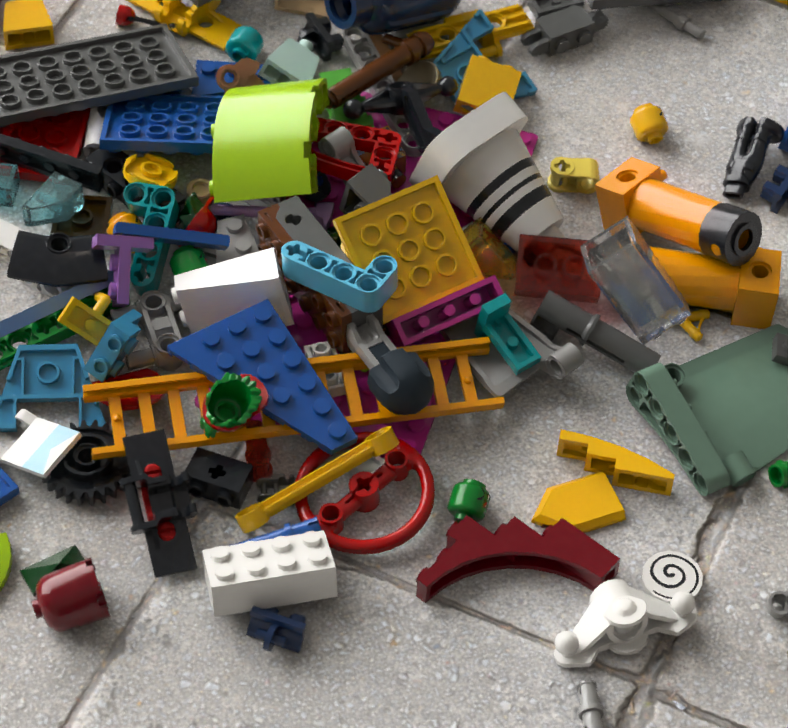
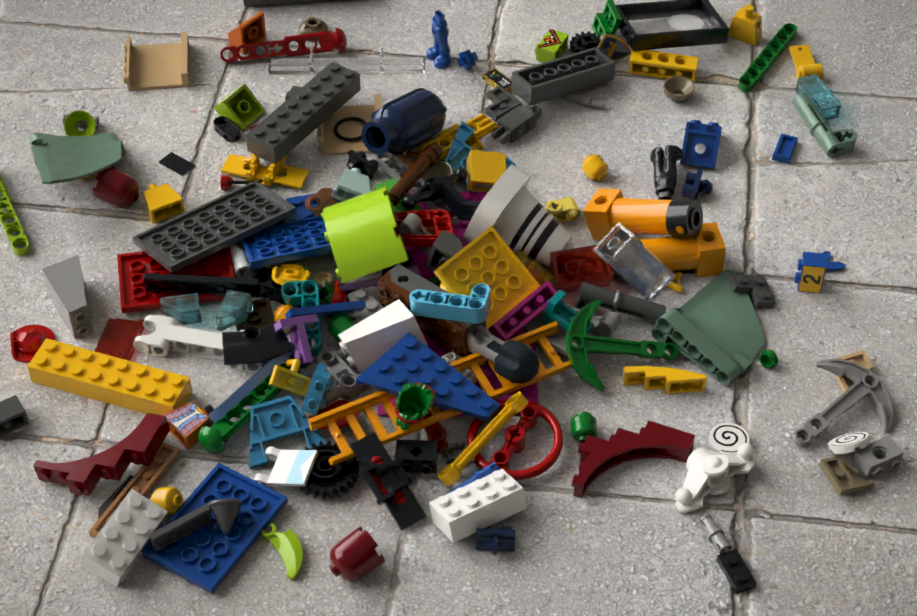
camera: 15 degrees left, 5 degrees down
(62, 559) = (322, 549): dark green slope -> none
(244, 43) = (314, 180): teal head -> none
(536, 388) = (603, 345): none -> green piece
(583, 502) = (653, 406): yellow tile -> none

